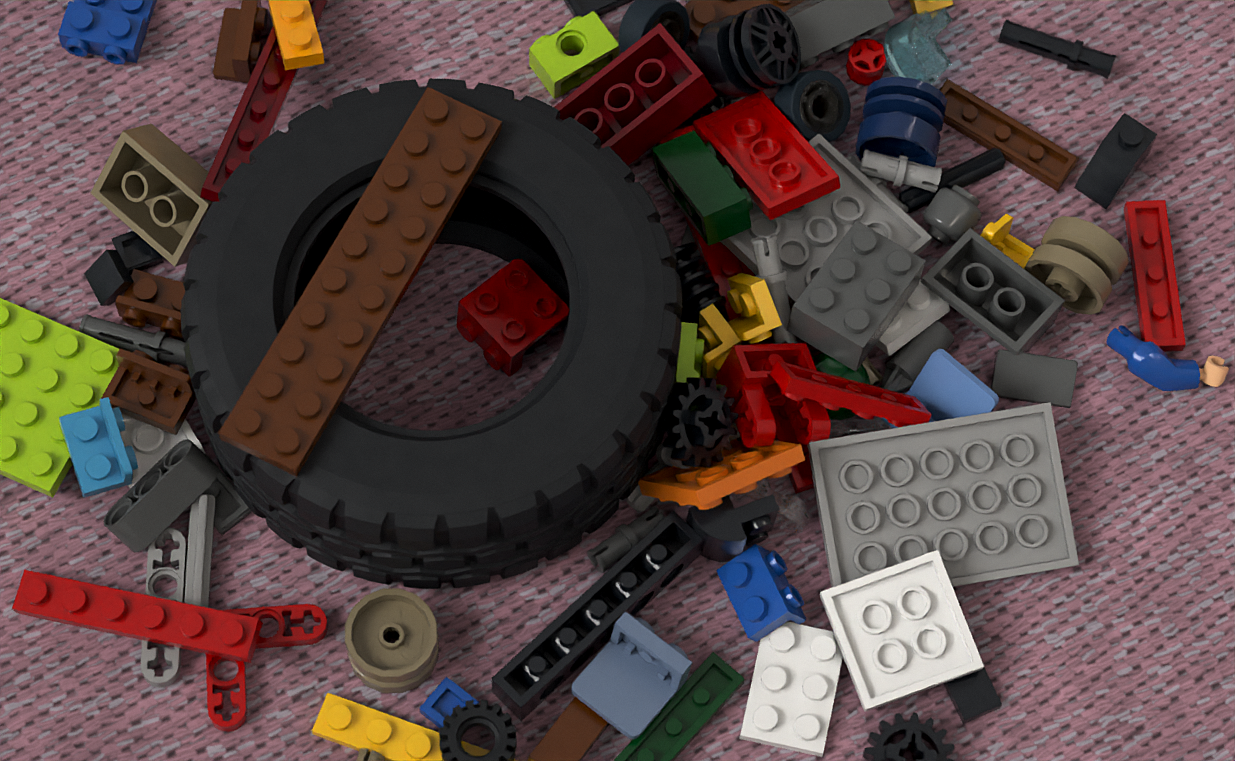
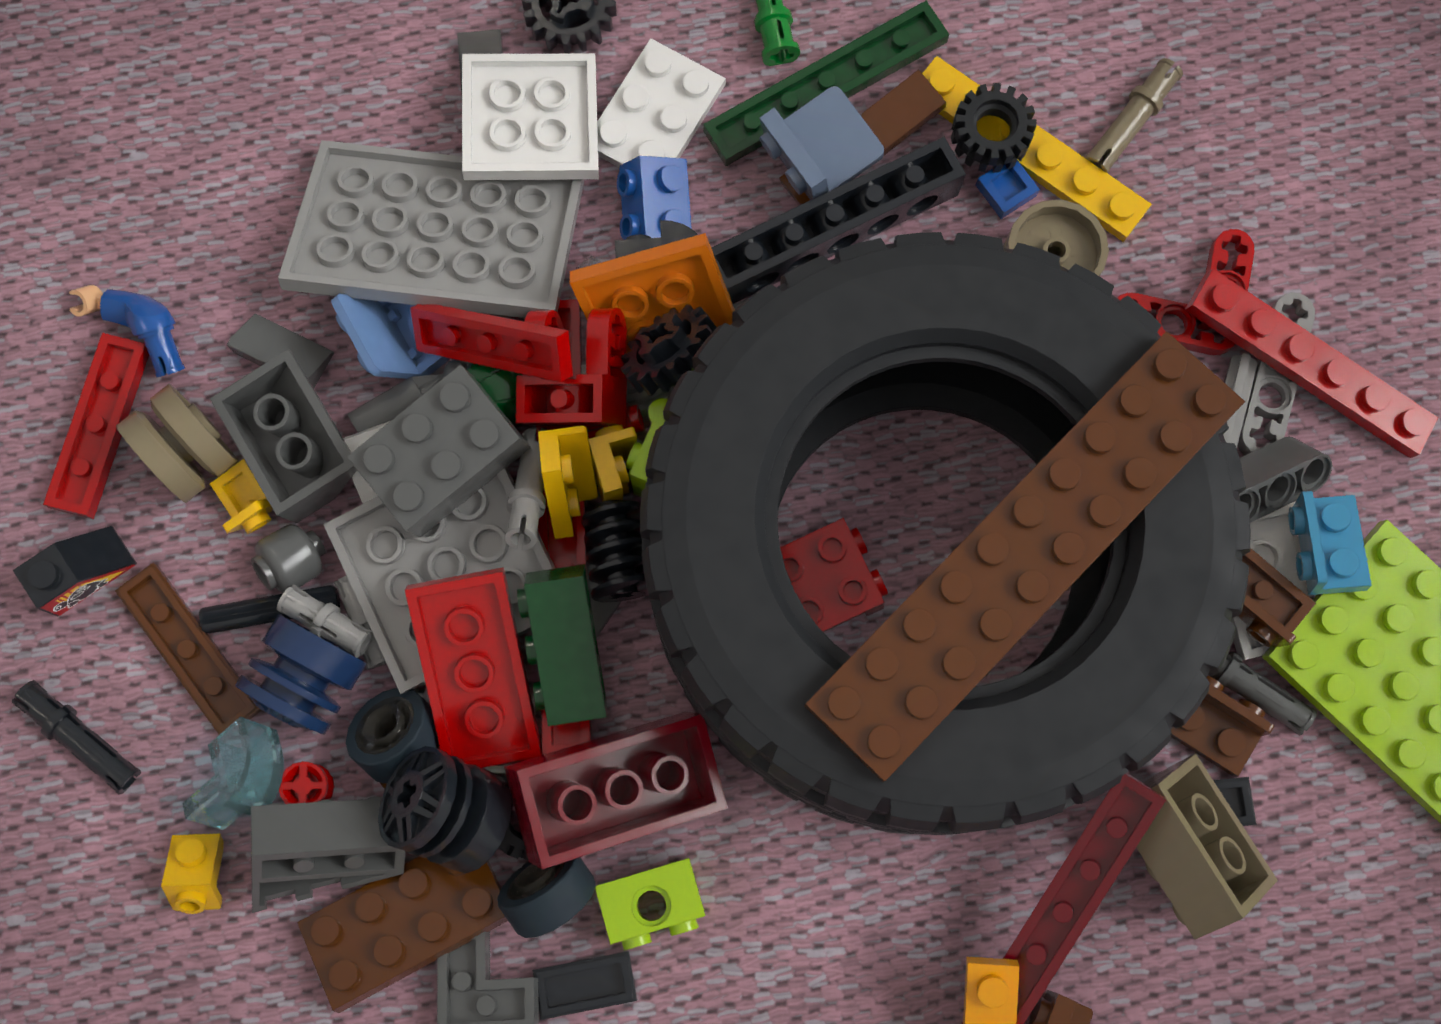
camera: 160 degrees left, 10 degrees up
(108, 277) = (1269, 772): black tile -> none

